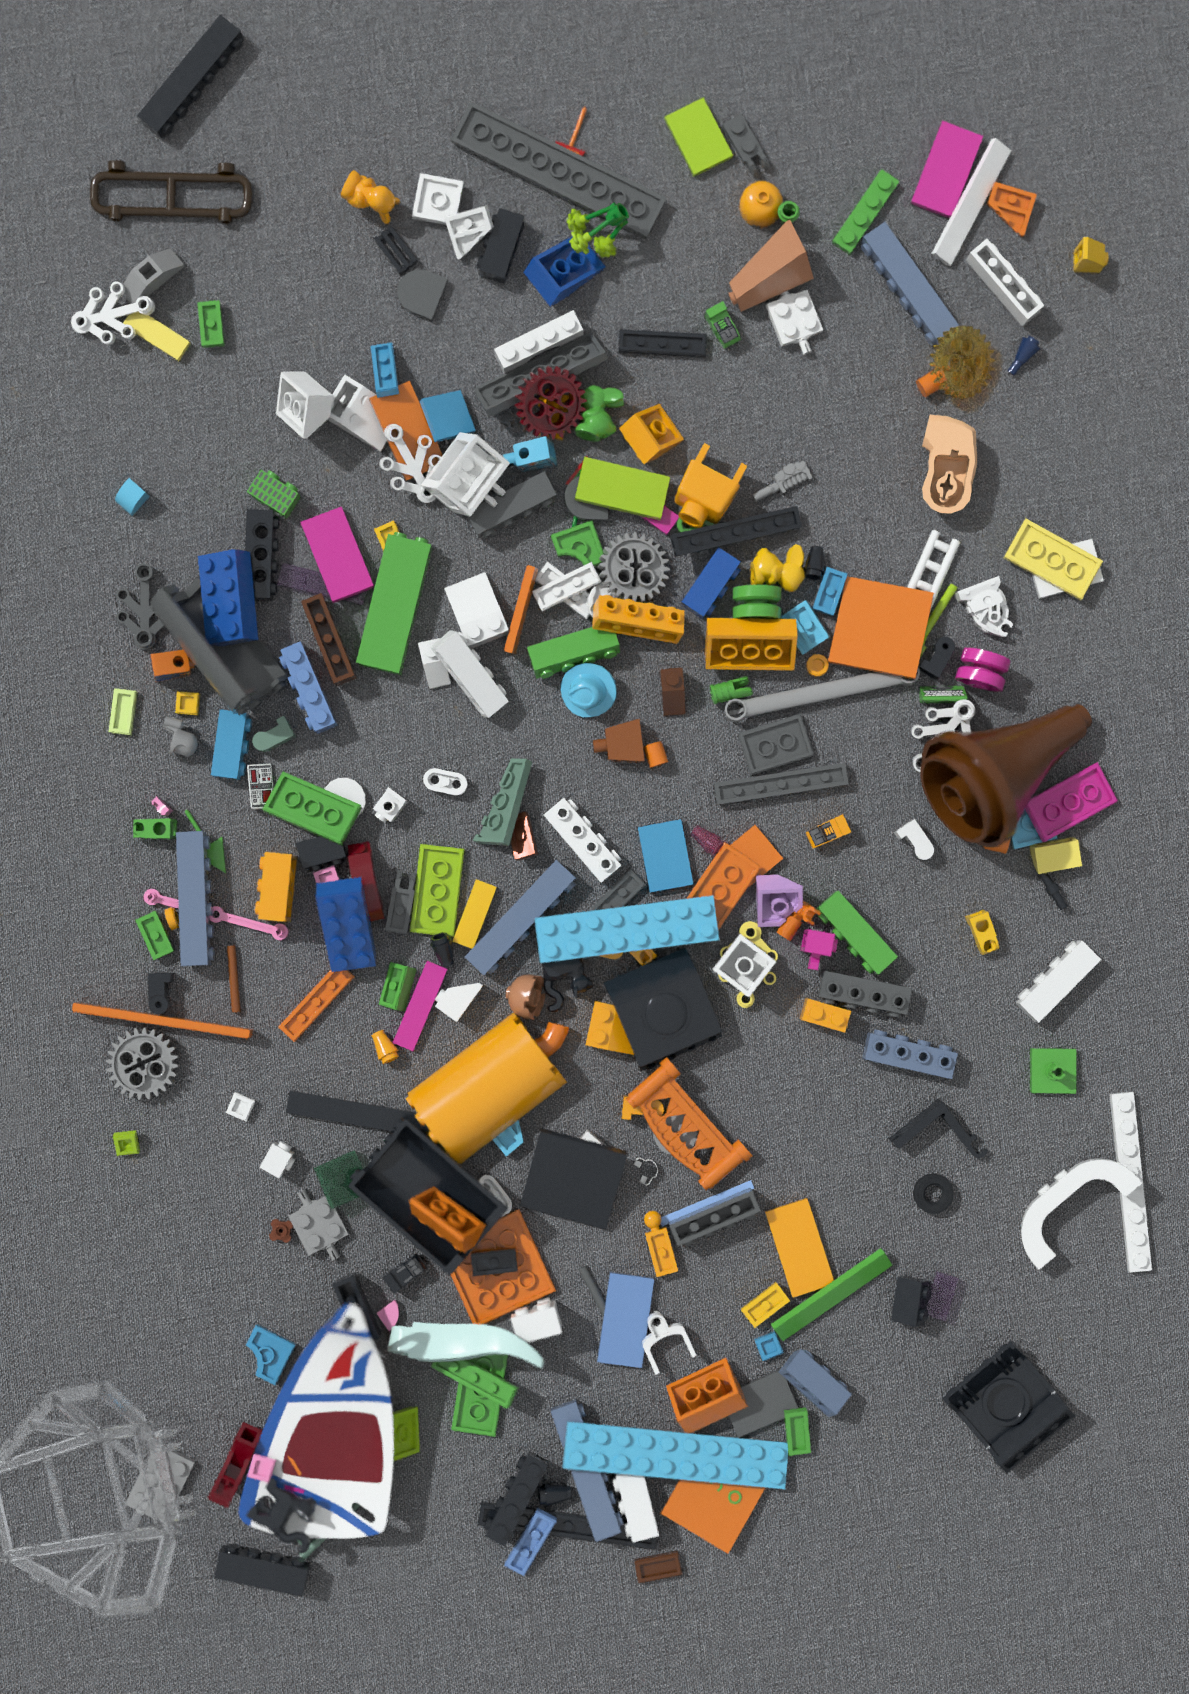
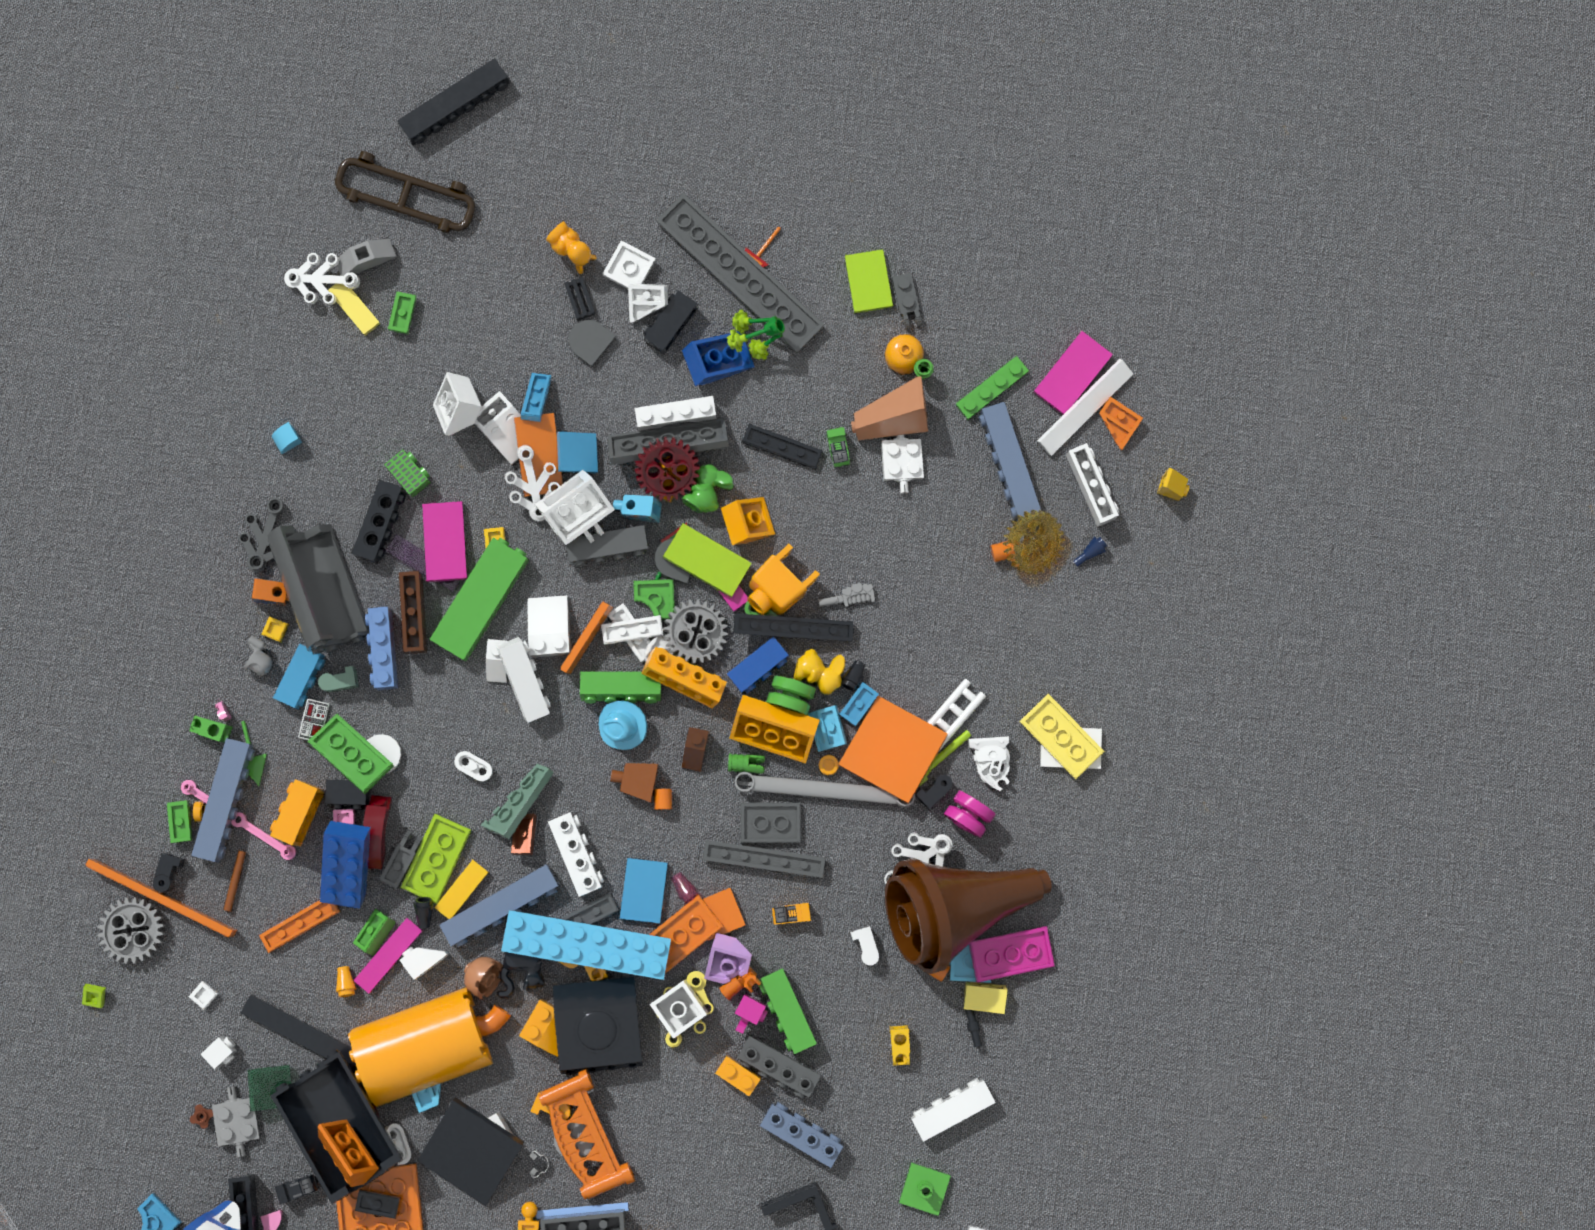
camera: 20 degrees right, 5 degrees down
(123, 711) = (217, 619): yellowish green tile -> none
(228, 597) = (337, 550): blue brick -> none
(397, 805) = (426, 772): white brick -> none
(941, 694) = (929, 824): slope -> none
(950, 463) = (995, 627): light nougat piece -> none

